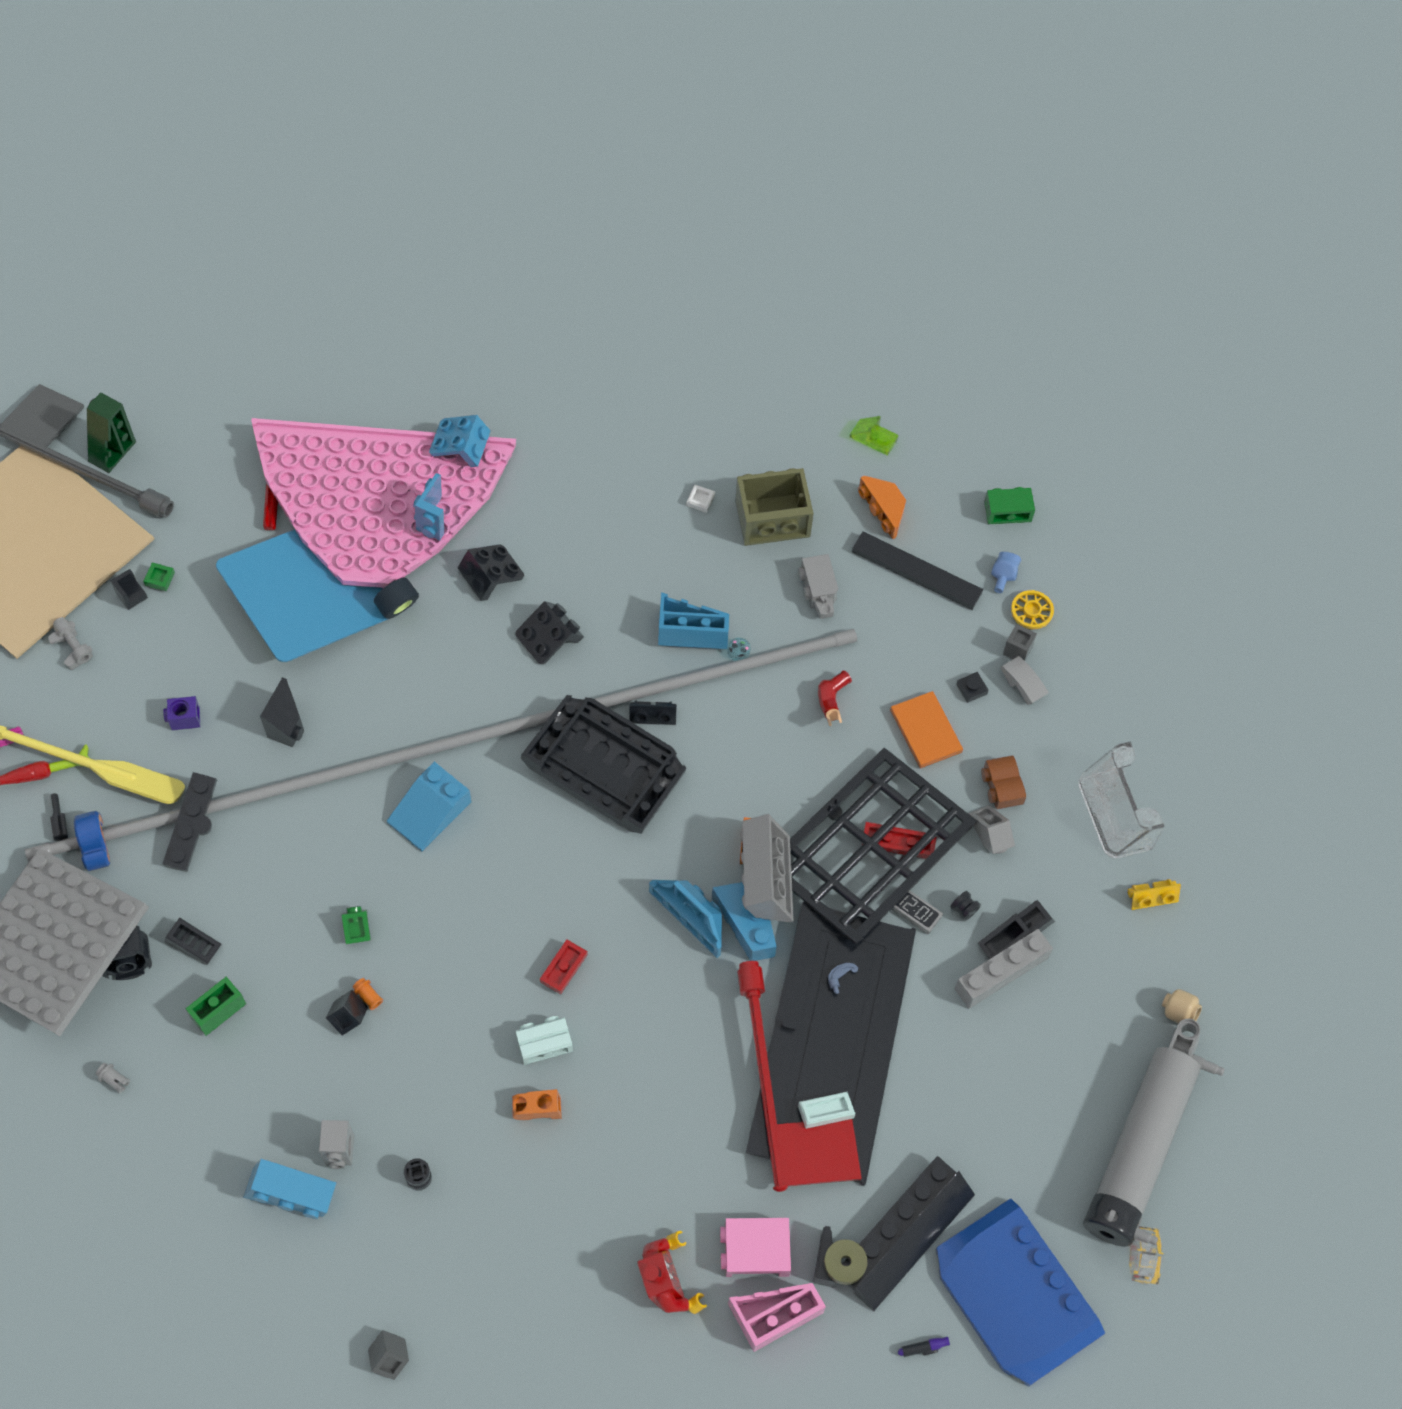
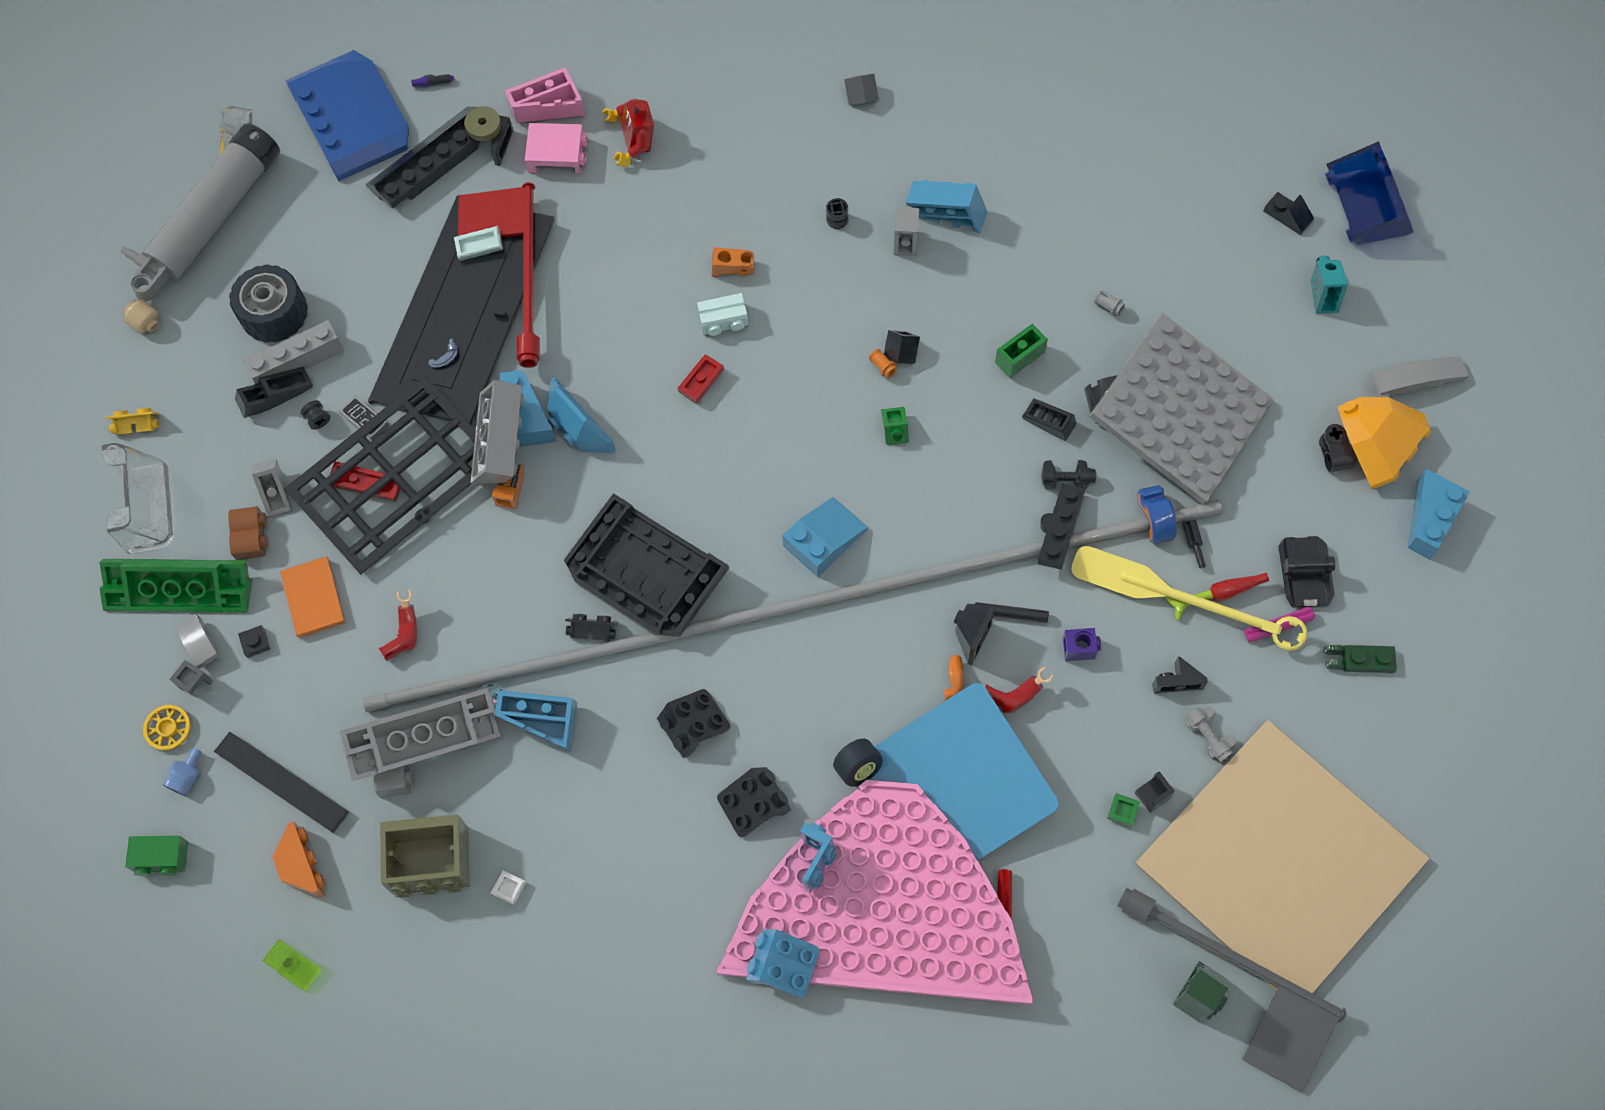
camera: 170 degrees left, 5 degrees up
(89, 684) = (1186, 679): none -> black slope
(164, 879) = (1081, 477): none -> black piece
(246, 666) = (1020, 696): none -> red arm
(247, 744) = (1019, 613): none -> black piece
(304, 681) = (956, 676): none -> orange arm
(791, 588) = (419, 734): none -> light grey slope
(1044, 1022) = (268, 303): none -> black wheel
(1059, 729) = (175, 585): none -> green slope

